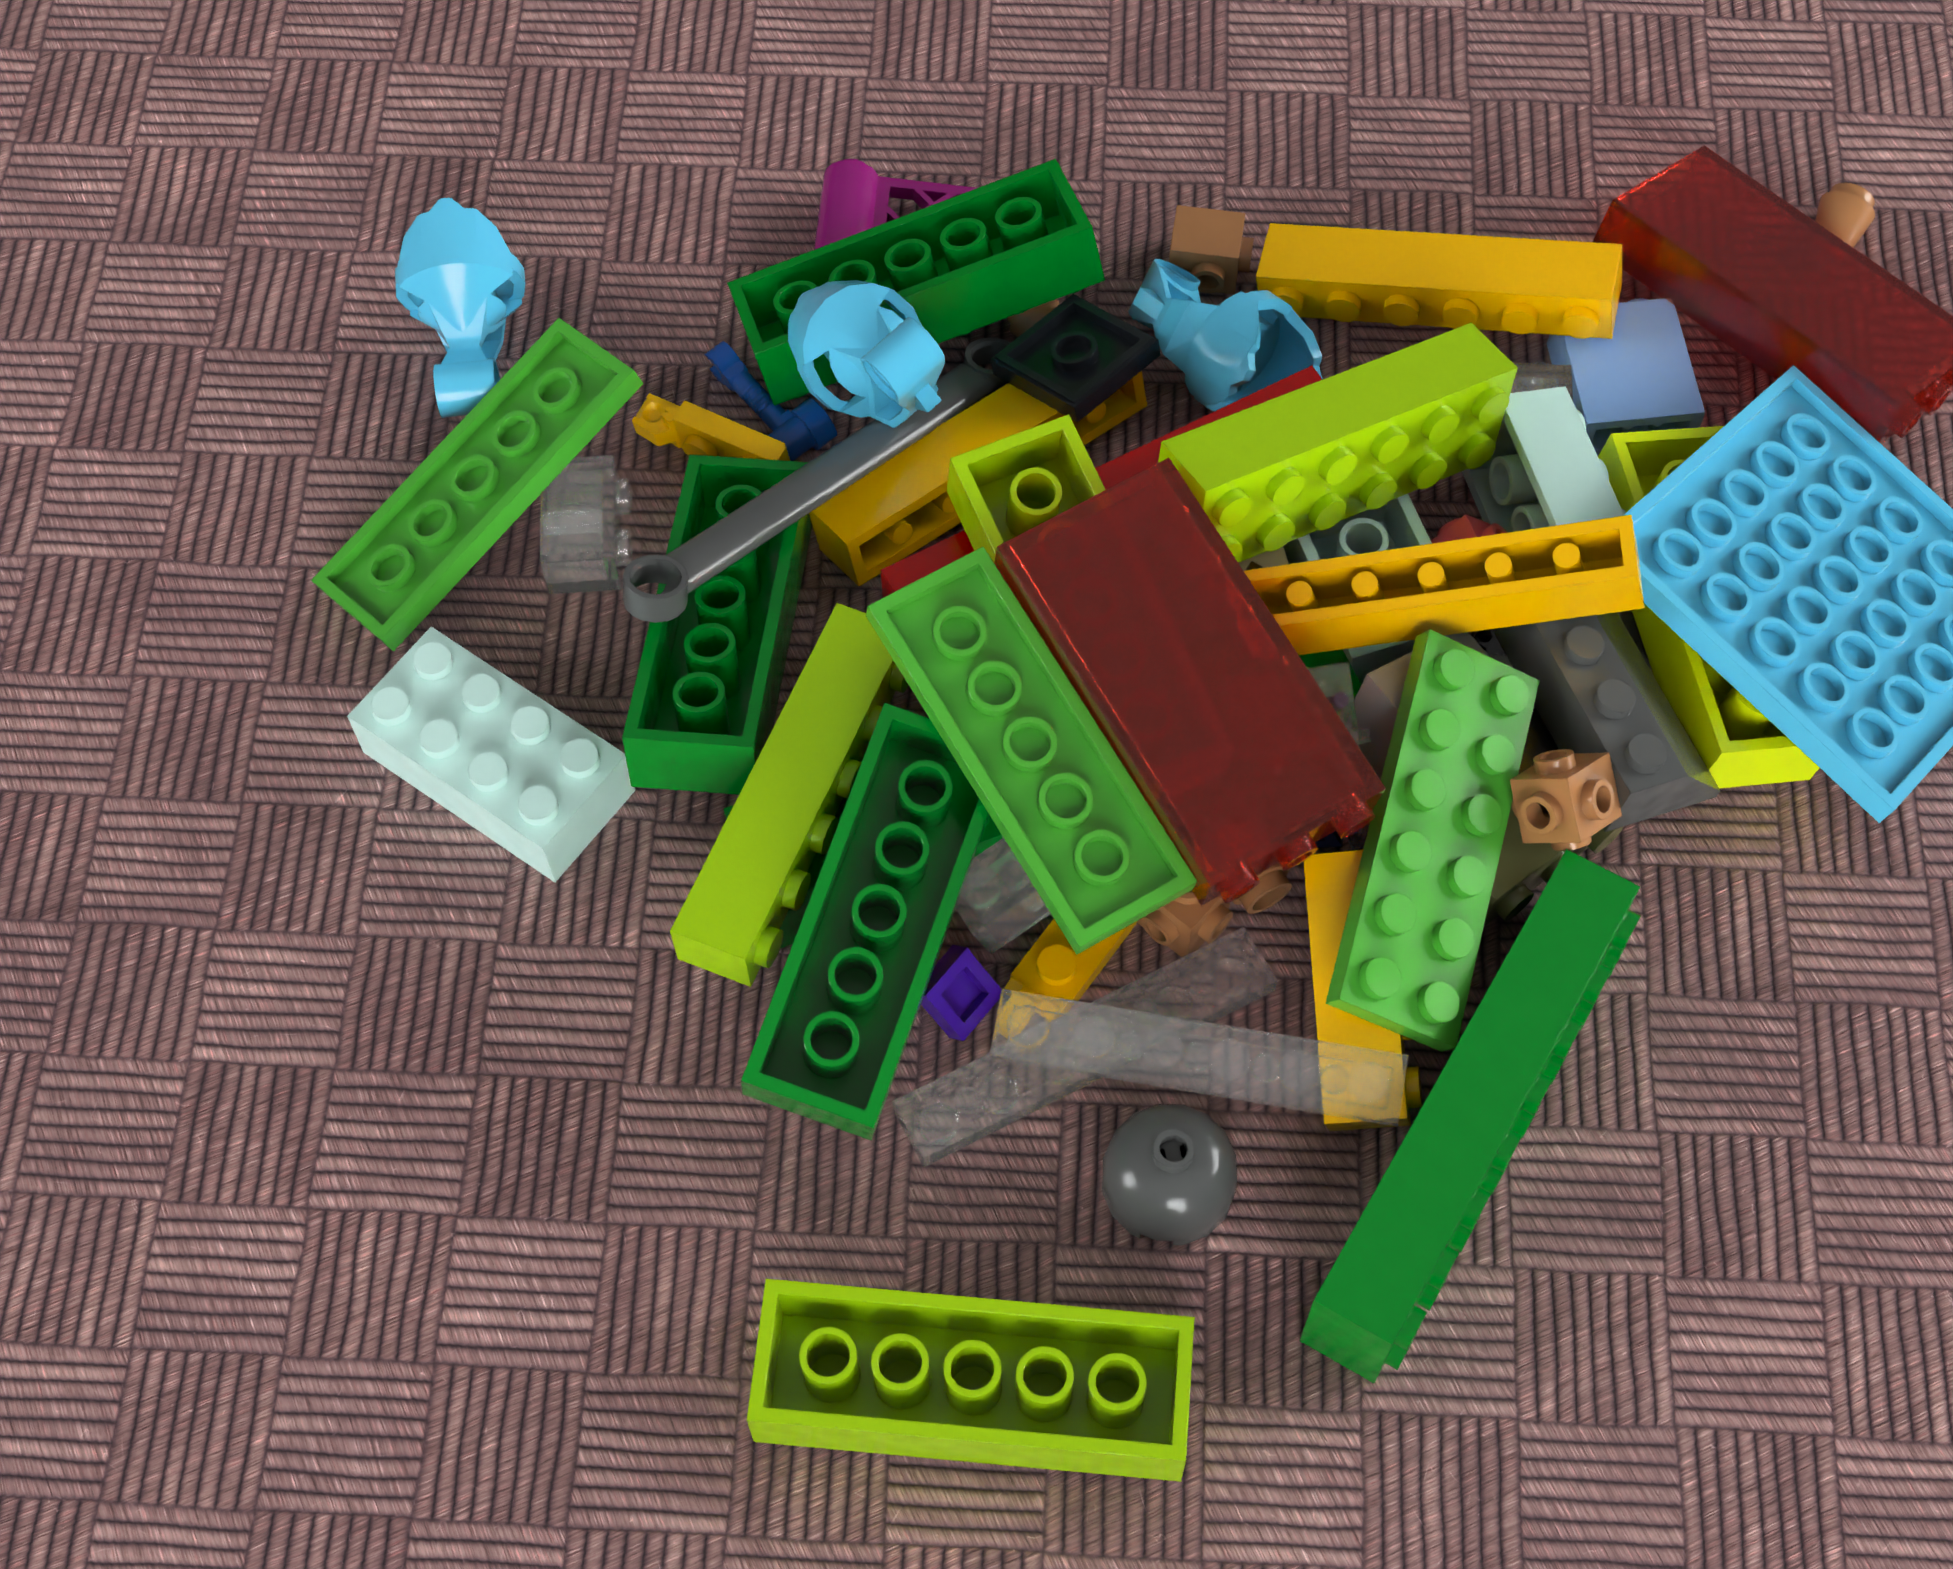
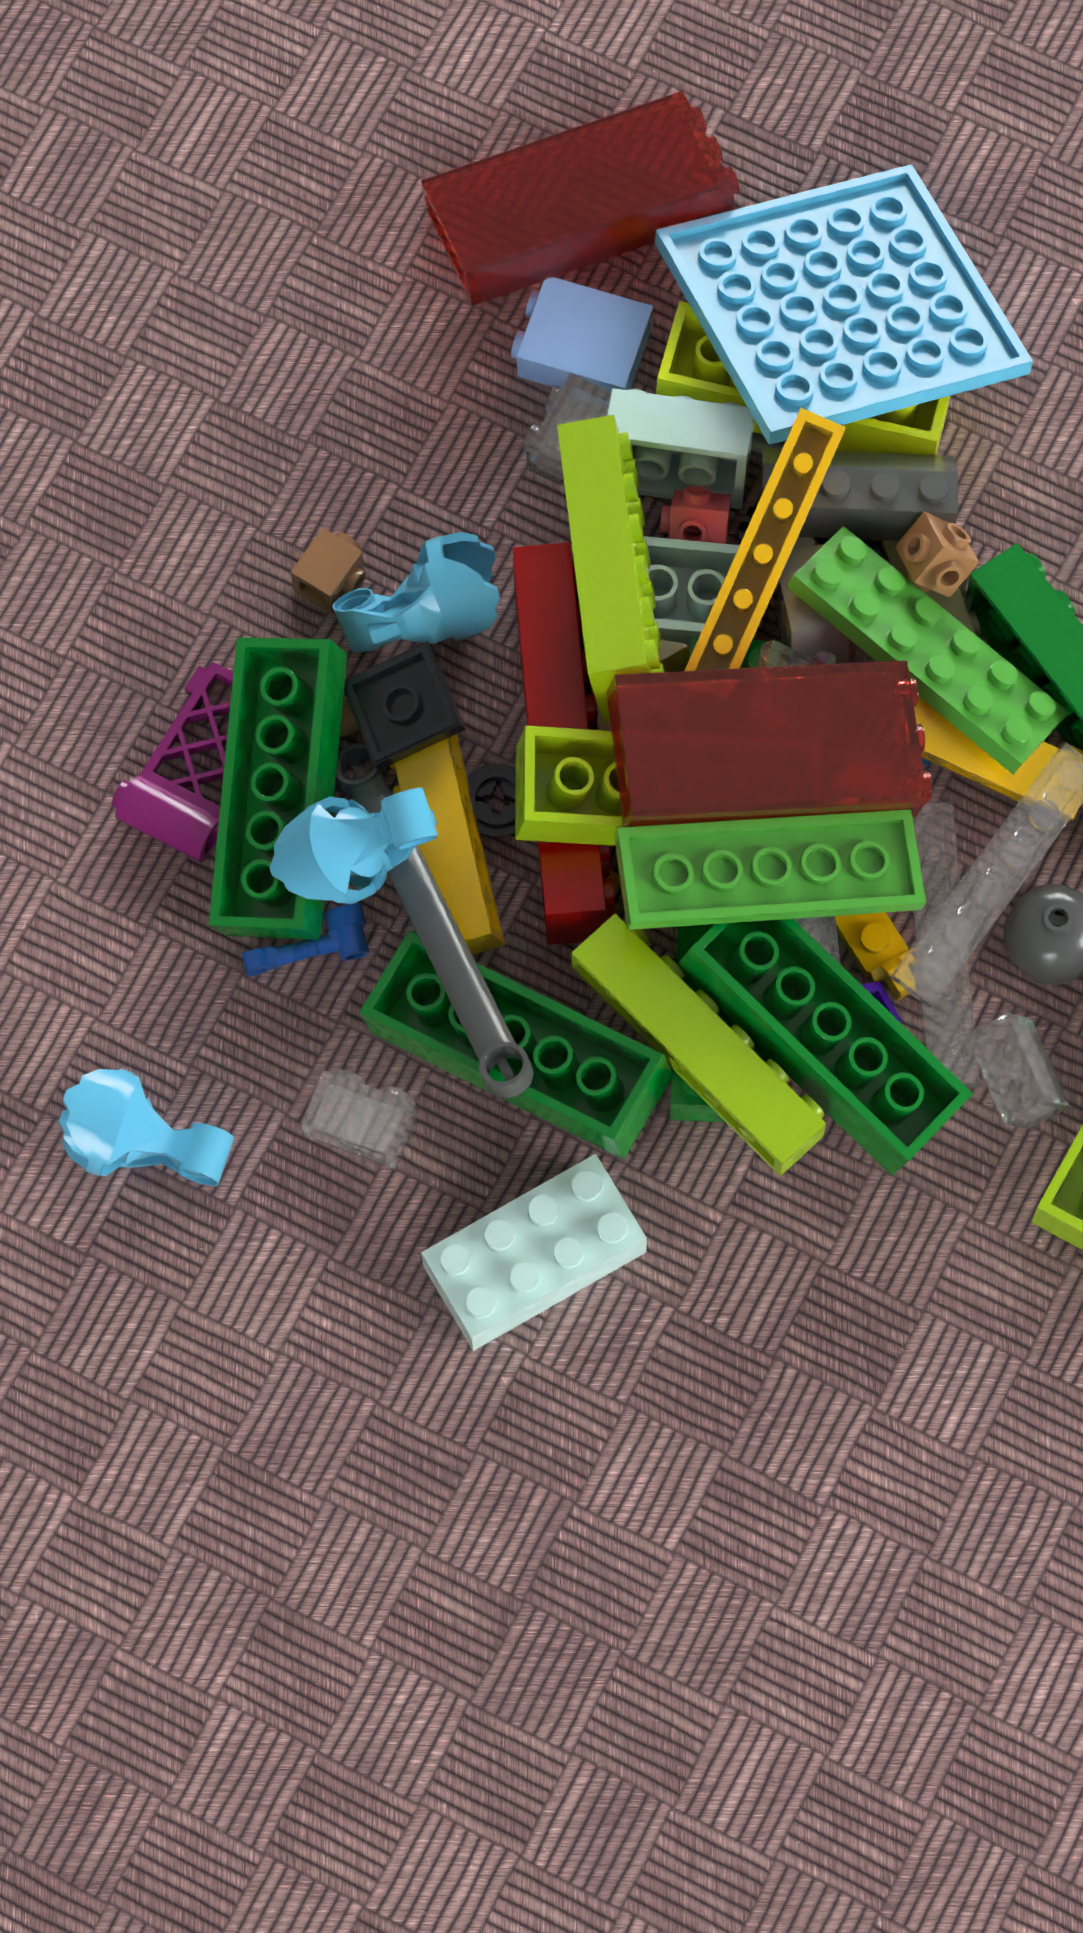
camera: 65 degrees left, 10 degrees up
(477, 483) = (302, 1176): bright green plate -> none
(703, 431) = (327, 997): yellow hinge -> none
(954, 1193) = (1017, 1071): none -> clear brick
(1444, 279) = (455, 424): yellow brick -> none
(1846, 211) = (519, 120): medium nougat cone -> none

